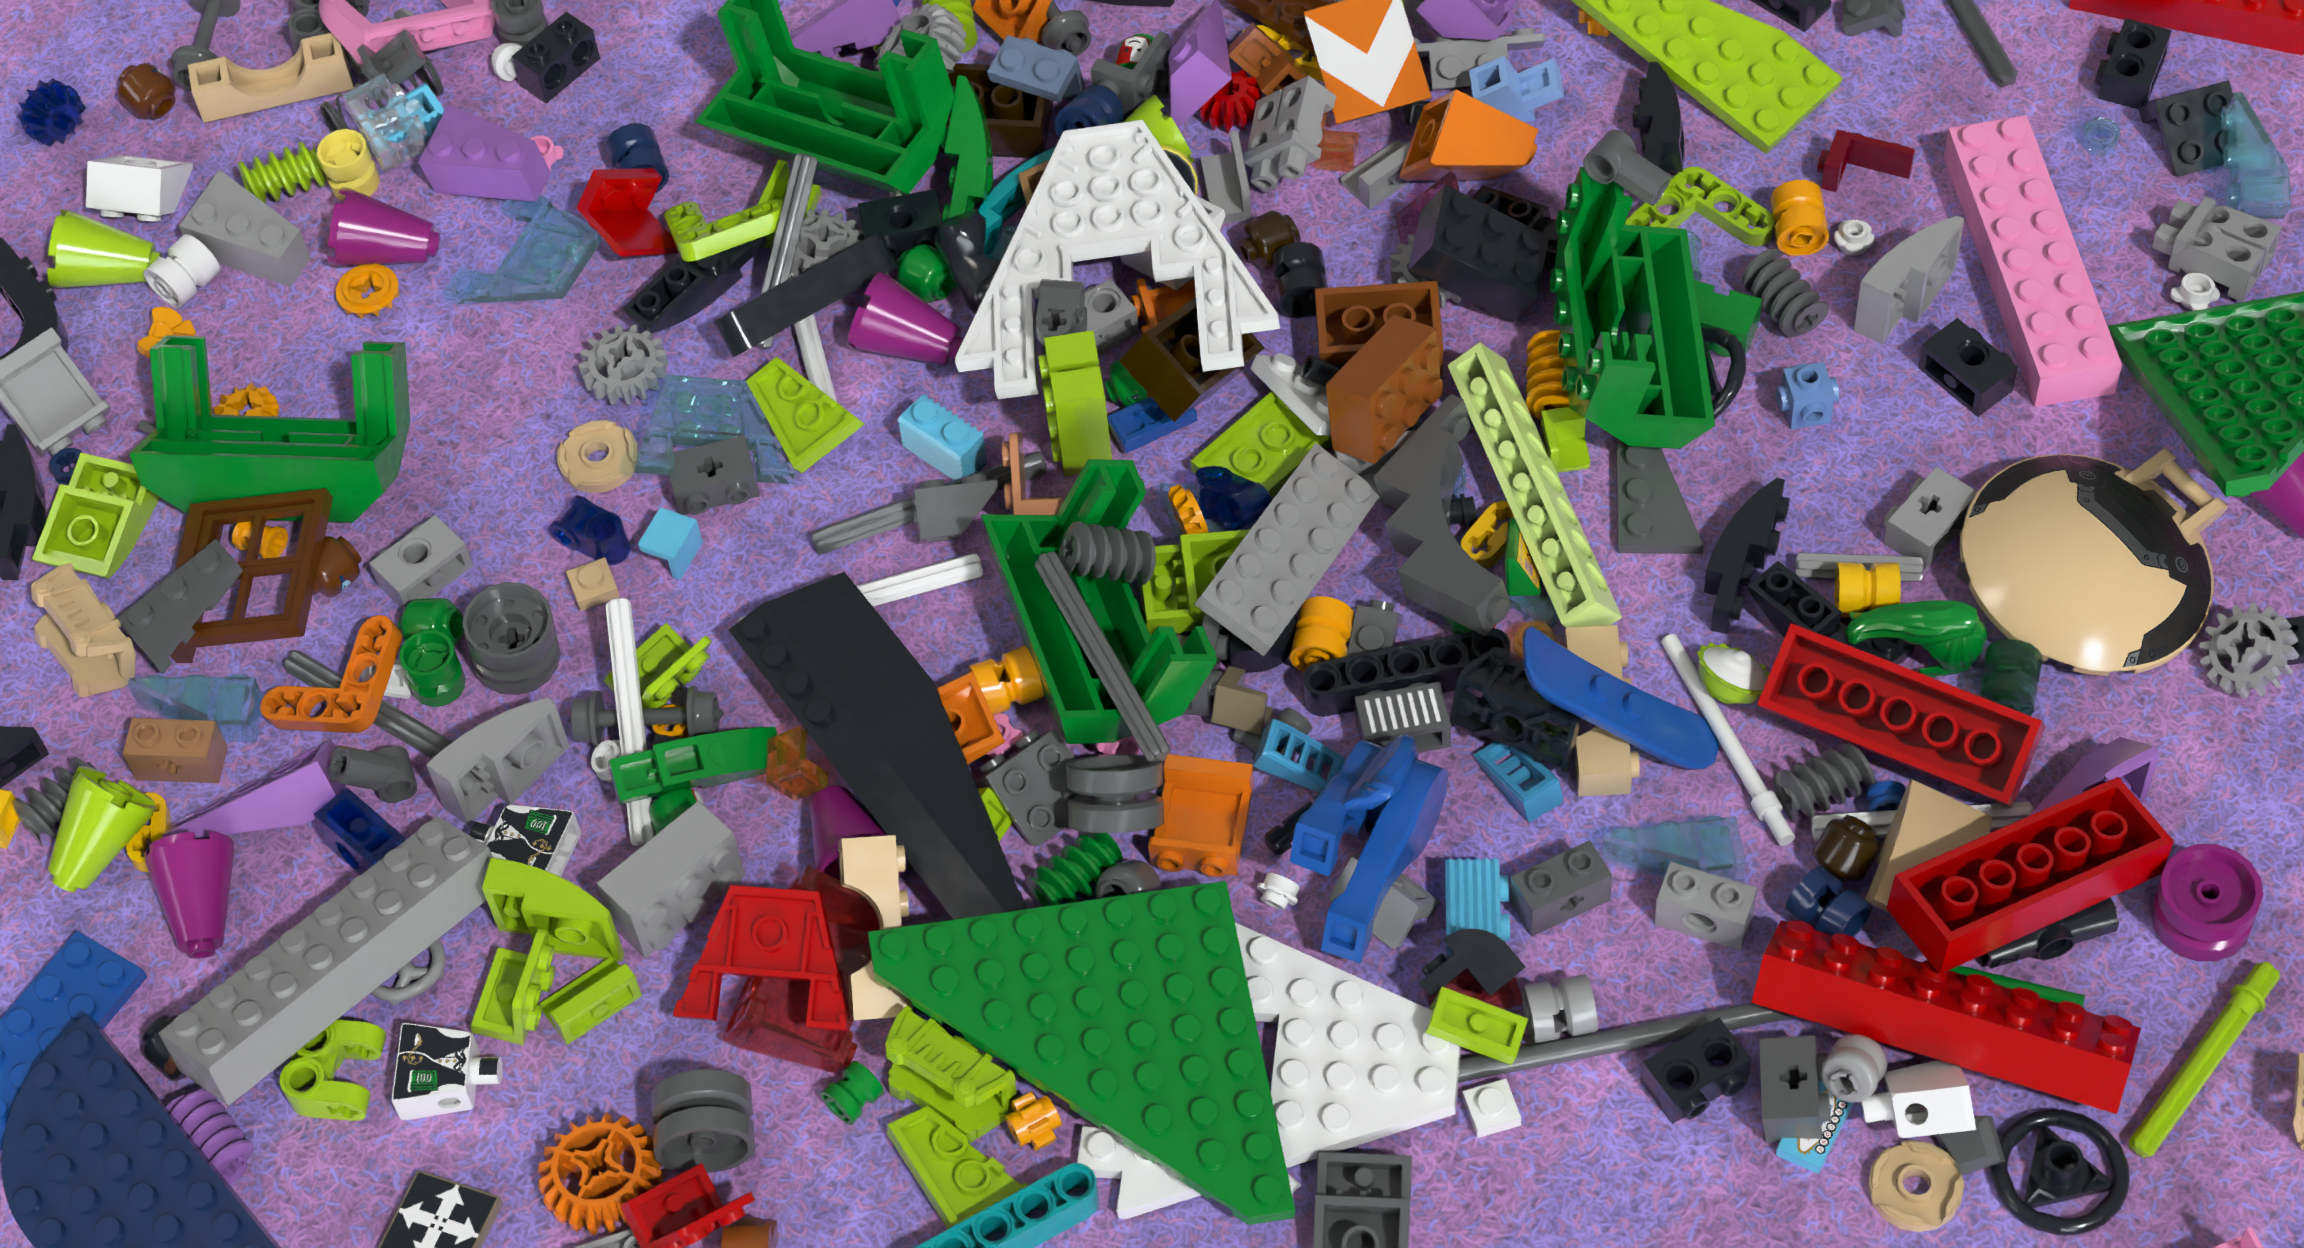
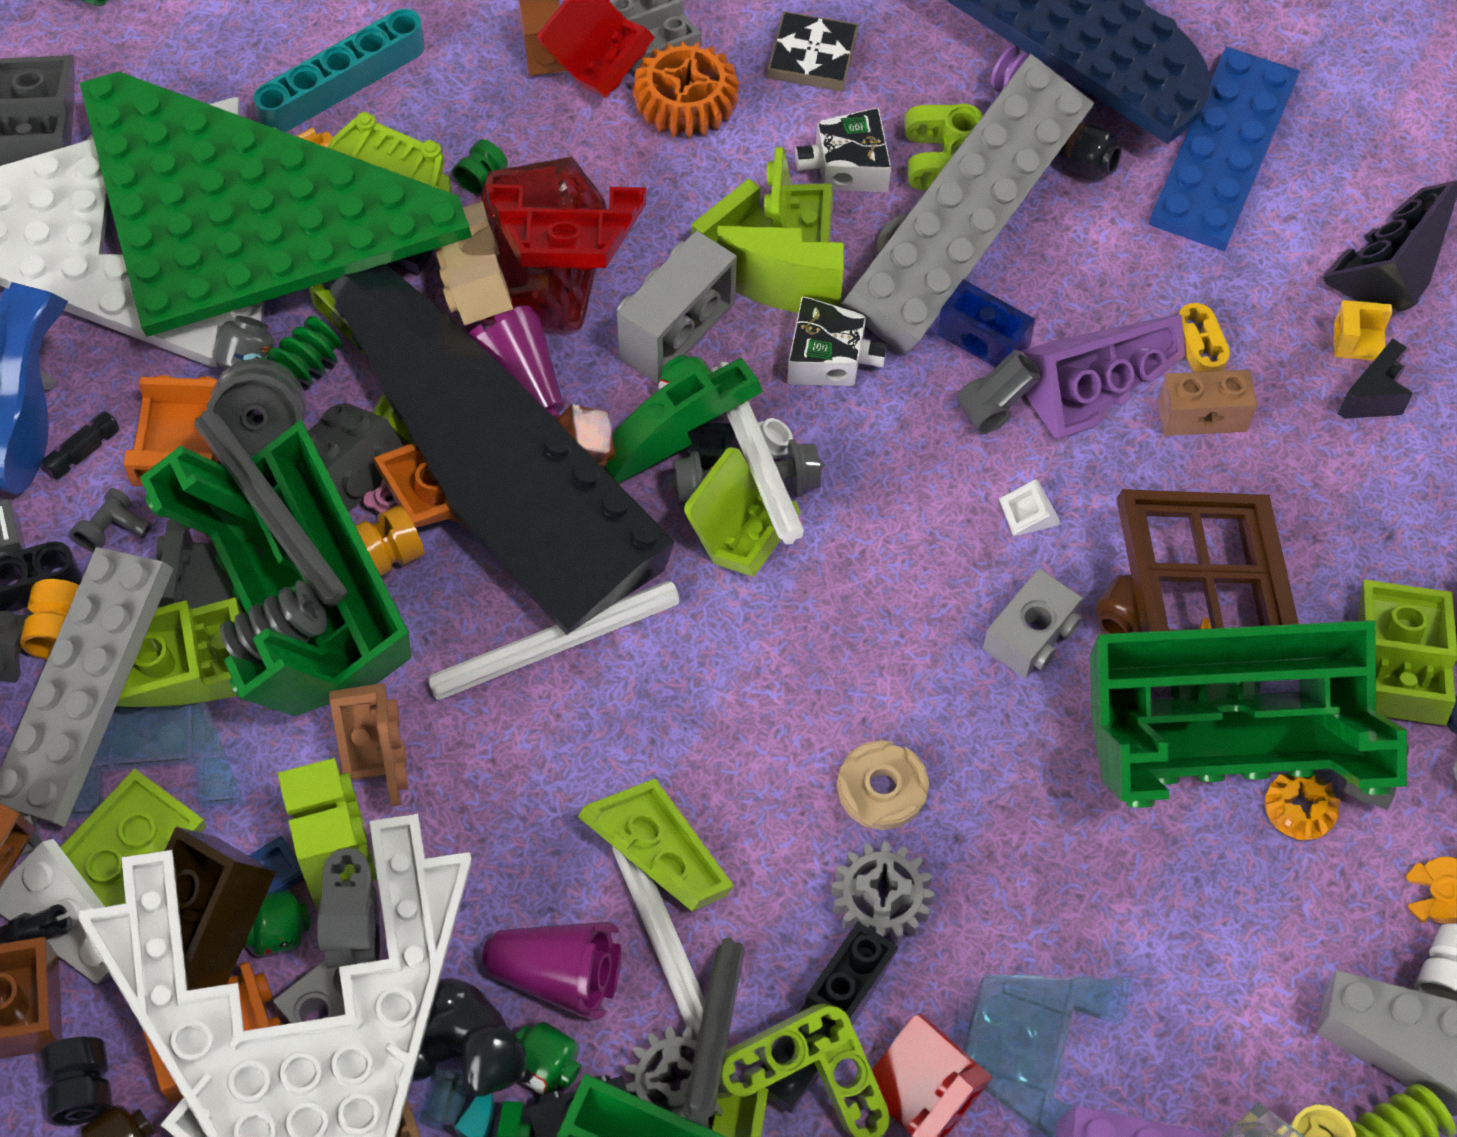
camera: 165 degrees right, 5 degrees up
(47, 807) = (1294, 349): dark grey piece -> none
(82, 633) = (1355, 502): tan piece -> none
(95, 827) = (1239, 313): lime cone -> none
(173, 607) = (1261, 522): dark grey wing -> none
(193, 888) = (1133, 275): magenta cone -> none
(227, 700) = (1194, 452): clear light blue slope -> none
(351, 691) = (1110, 465): orange beam -> none
(358, 281) = (1238, 965): light orange gear -> none
(378, 233) = (1235, 1041): magenta cone -> none
(388, 717) = (1022, 472): dark grey axle -> none
(432, 614) = (998, 556): green head -> none
(432, 668) = (978, 502): green wheel -> none
(498, 759) = (878, 402): light grey slope -> none
(511, 638) = (903, 529): dark grey wheel -> none
(592, 531) = (863, 682): clear blue piece -> none
(592, 584) = (845, 631): tan plate -> none
(672, 539) = (769, 670): medium azure panel -> none
(703, 1120) = (600, 109): dark grey wheel -> none
(708, 411) = (768, 822): clear light blue wing -> none
(713, 476) = (729, 773): dark grey brick -> none
(805, 294) = (674, 978): black beam -> none
(901, 511) = (501, 754): dark grey axle -> none
(942, 439) = (488, 819): medium azure brick -> none
(948, 510) = (463, 728): dark grey slope -> none
(948, 1168) = (378, 97): lime wing -> none
(1186, 510) = (196, 721): light orange gear -> none
(1229, 497) = (146, 751): clear blue piece -> none
(1238, 705) = (136, 536): dark tan panel -> none
(1278, 891) = (102, 374): white plate -> none
(1292, 740) = (99, 489): dark azure slope -> none

